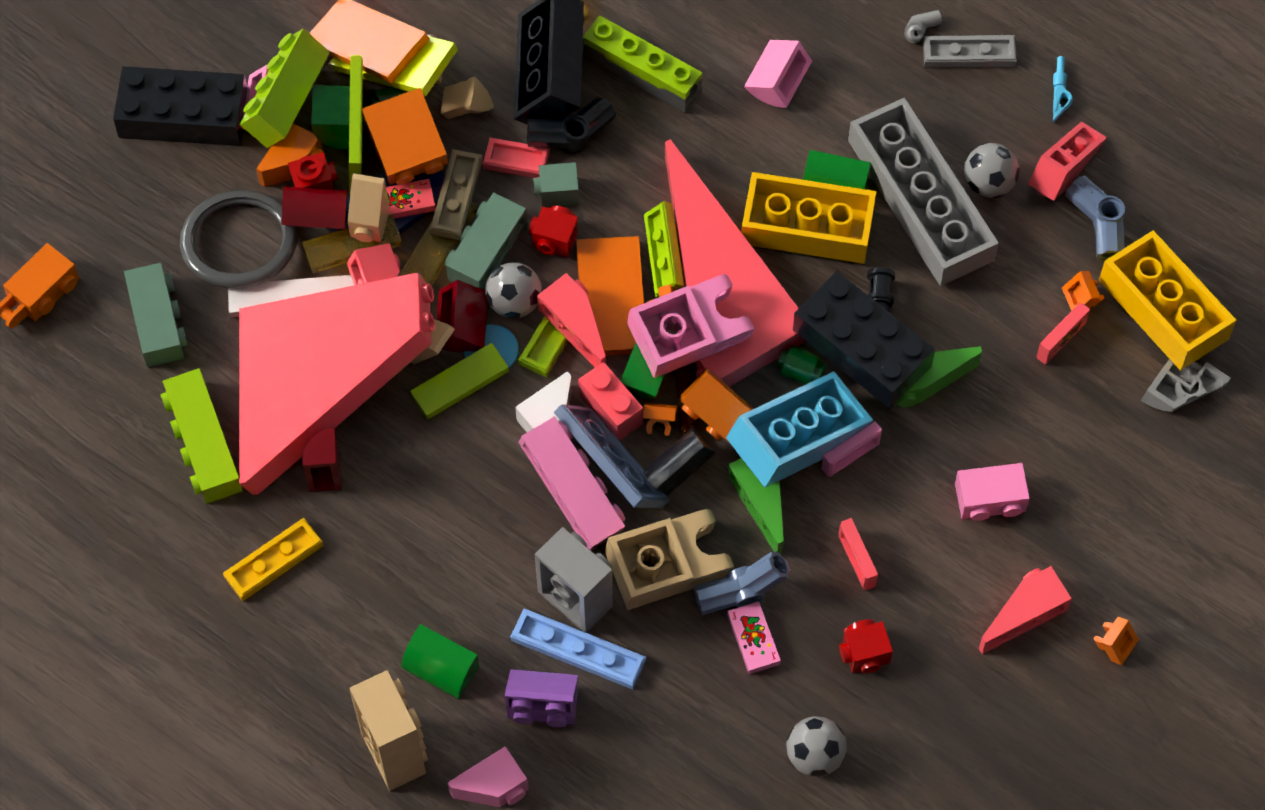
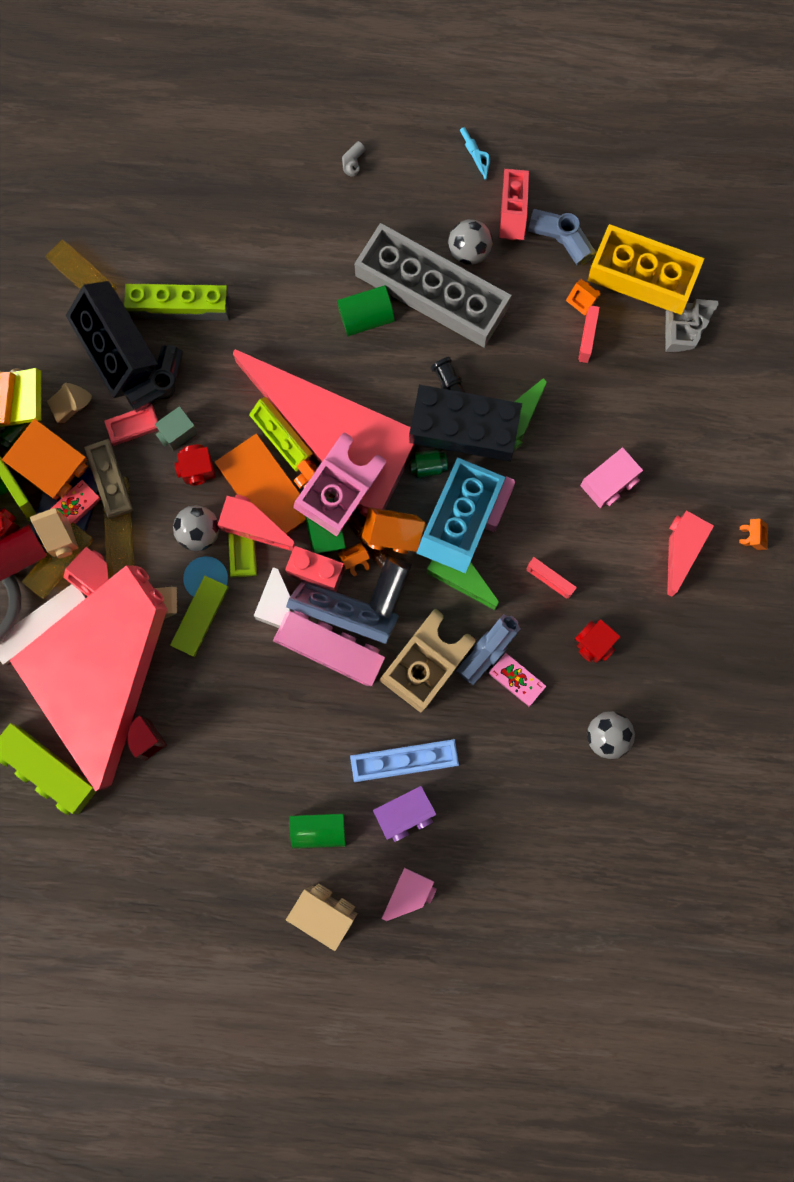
camera: 30 degrees left, 15 degrees up
(273, 559) = (153, 827): yellow tile -> none
(466, 311) = (171, 567): dark red brick -> none
(486, 241) = (152, 503): sand green brick -> none
(574, 579) = (377, 720): light grey brick -> none
(778, 72) = (276, 252): bright pink brick -> none
(808, 217) = (367, 351): yellow brick -> none
(969, 51) = (397, 159): light grey tile -> none

